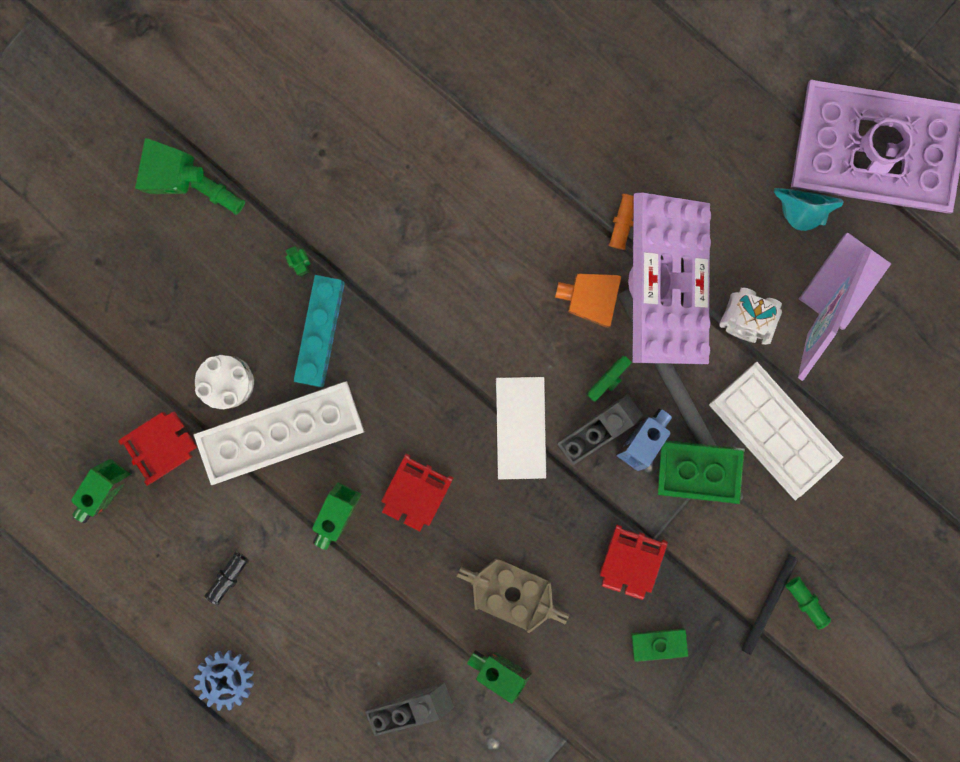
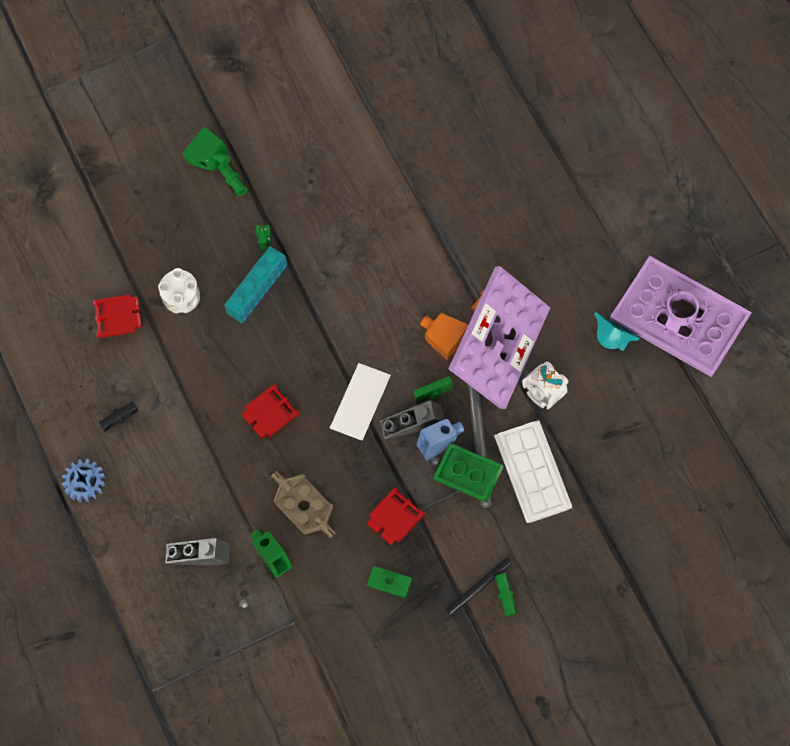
camera: 30 degrees right, 20 degrees down
(98, 489) = (65, 324): green torso -> none
(279, 433) = (199, 338): white plate -> none
(334, 515) = (209, 401): green torso -> none
(838, 294) = (611, 396): lavender piece -> none

